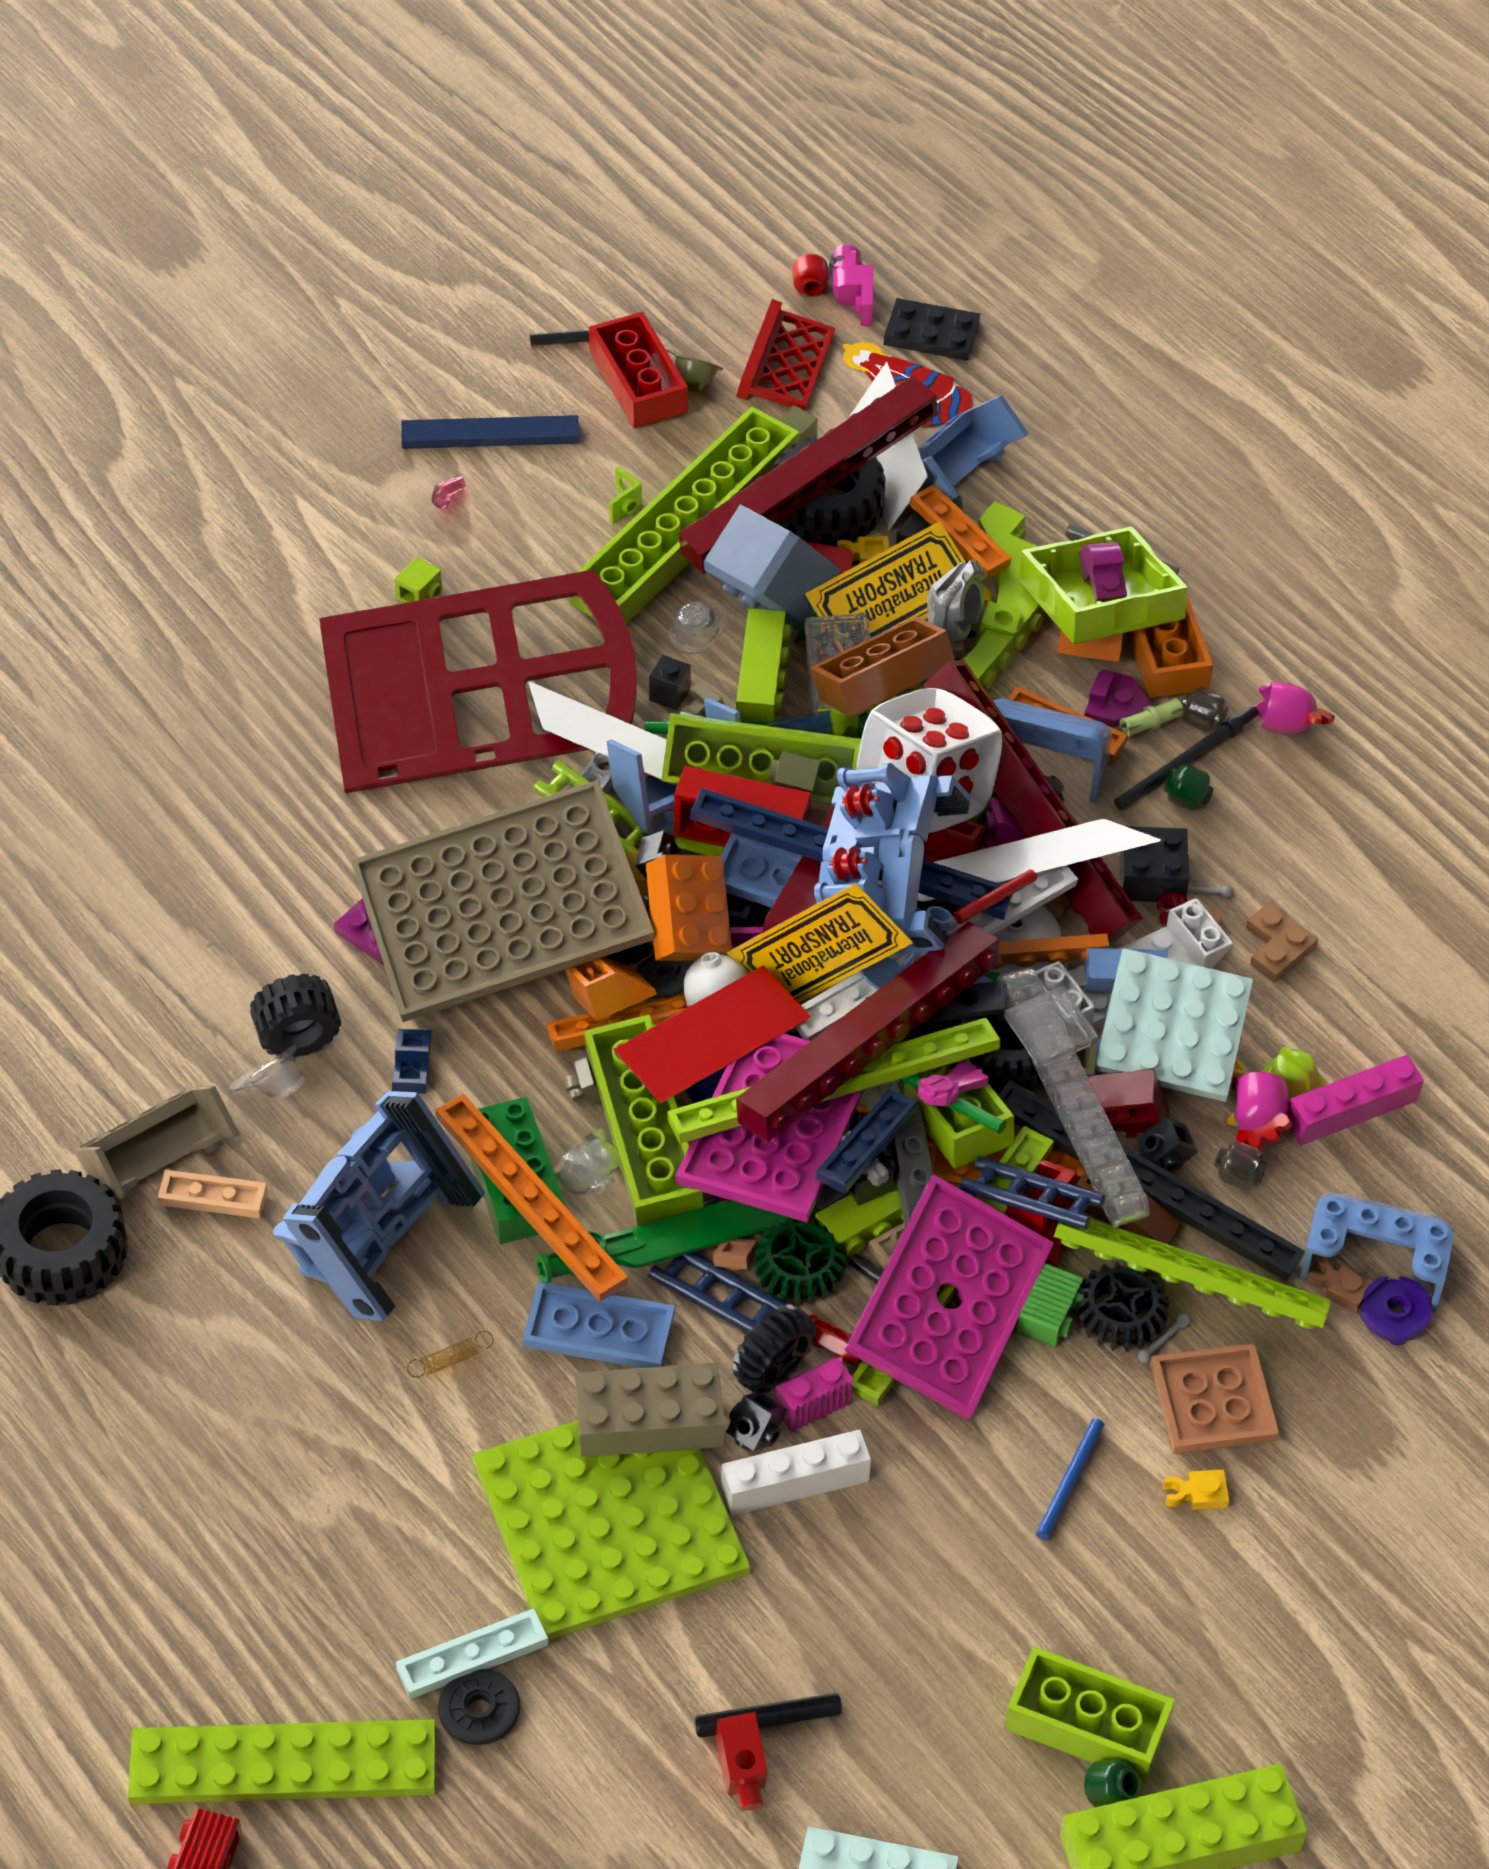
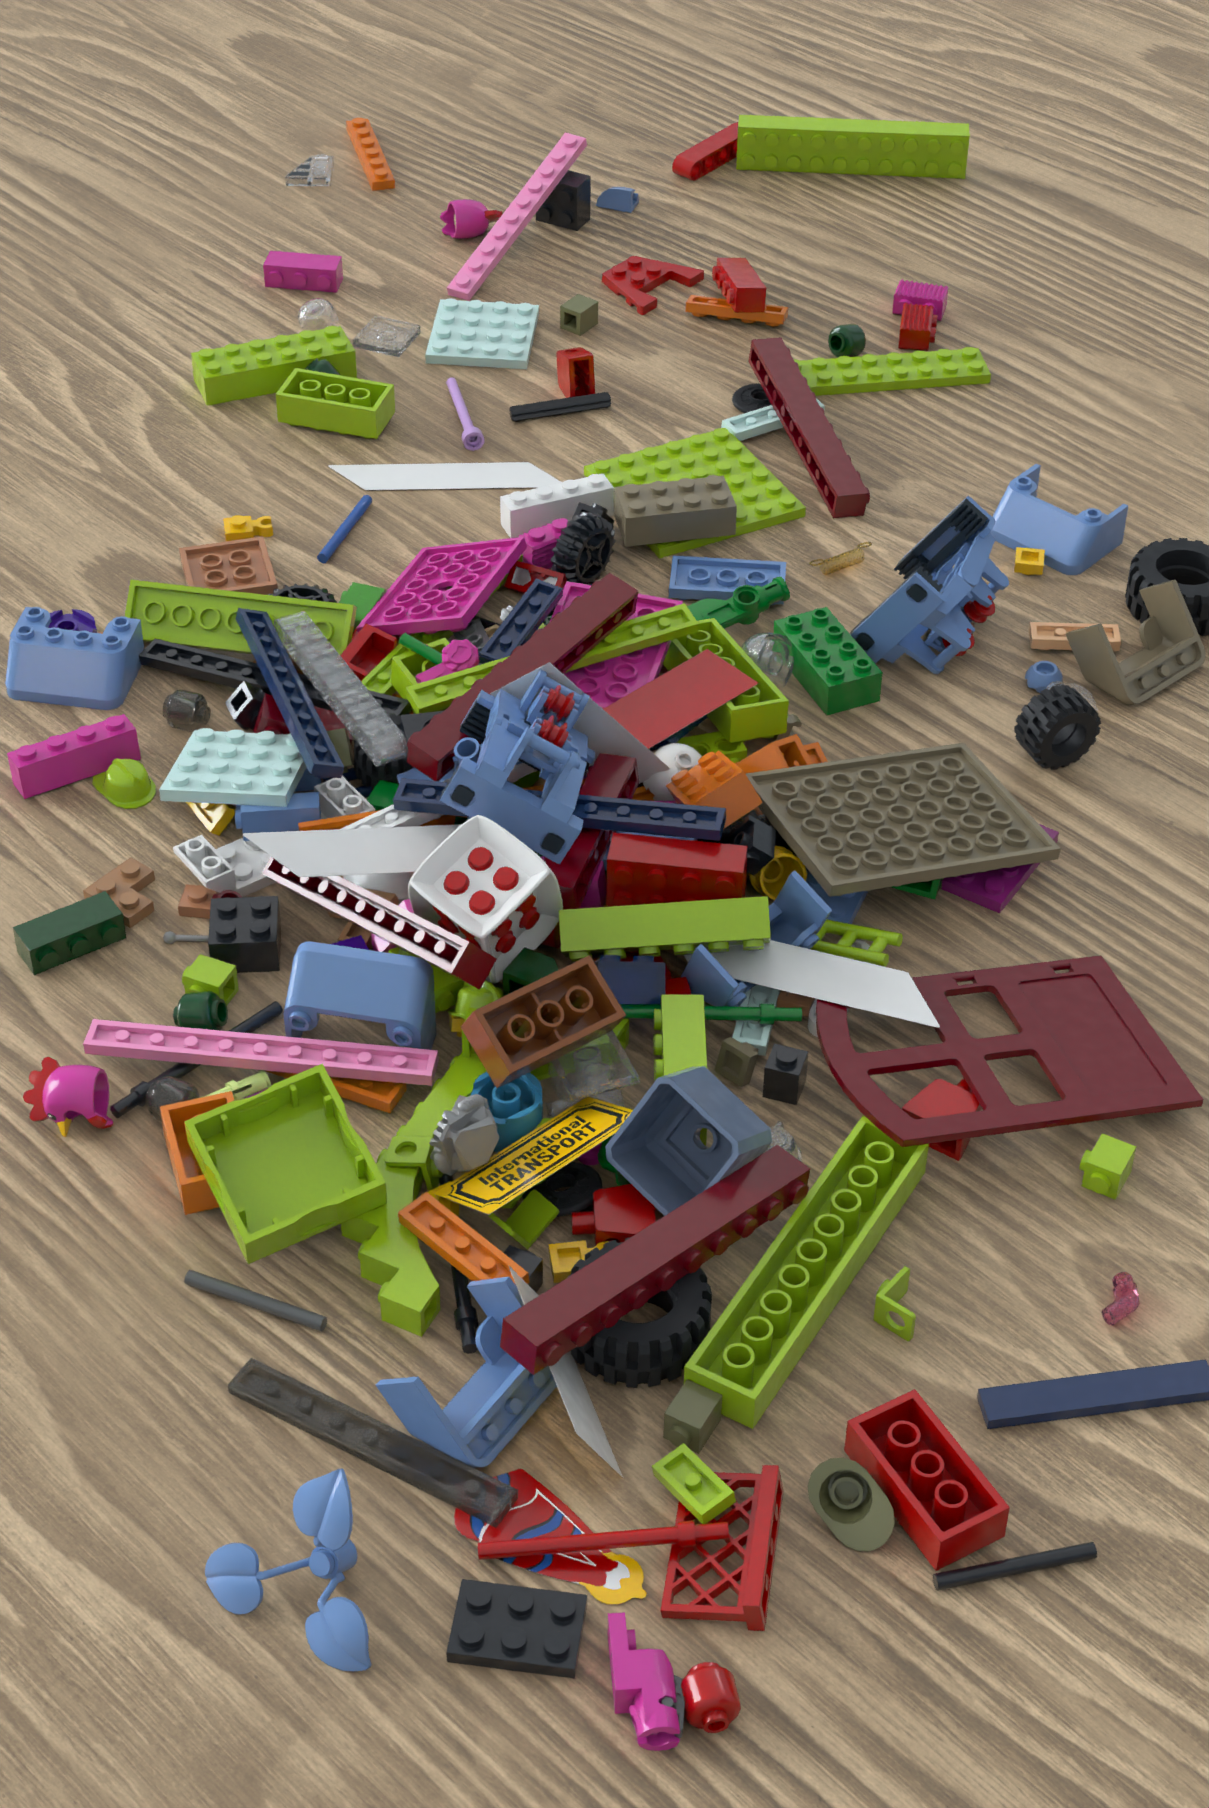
camera: 175 degrees right, 10 degrees down
(210, 1392) = (1068, 540): none -> medium blue windscreen
(219, 1326) = (1029, 561): none -> yellow plate
(269, 1150) = (1042, 674): none -> medium blue plate
(321, 1824) = (847, 340): none -> dark green head
(411, 1060) = (941, 730): dark blue slope -> none
(437, 1600) = (808, 428): none -> dark red brick
(532, 1197) = (805, 603): orange plate -> none
(545, 632) = (944, 1099): none -> red torso
(794, 771) = (627, 885): olive brick -> none
(802, 381) = (694, 1484): none -> lime plate
(813, 355) = (685, 1534): none -> red bar
(897, 1647) = (471, 436): none -> lavender piece
(934, 1586) = (446, 476): none -> white sticker
(995, 896) = (411, 780): red bar -> none
(1042, 1206) = (366, 620): dark blue bar -> none
(1051, 456) = (374, 1442): none -> clear smoke tile
(1051, 1026) = (358, 699): clear tile -> none
(1060, 360) = (323, 1511): none -> medium blue plant
(1103, 567) = (285, 1177): magenta brick -> none
(1129, 1098) = (290, 694): none -> dark blue plate
(1162, 734) = (261, 1051): none -> bright pink plate
(1185, 813) = (213, 976): none -> lime brick
(1260, 1108) = (159, 739): dark pink piece -> none
(1323, 885) = (69, 932): none -> dark green brick

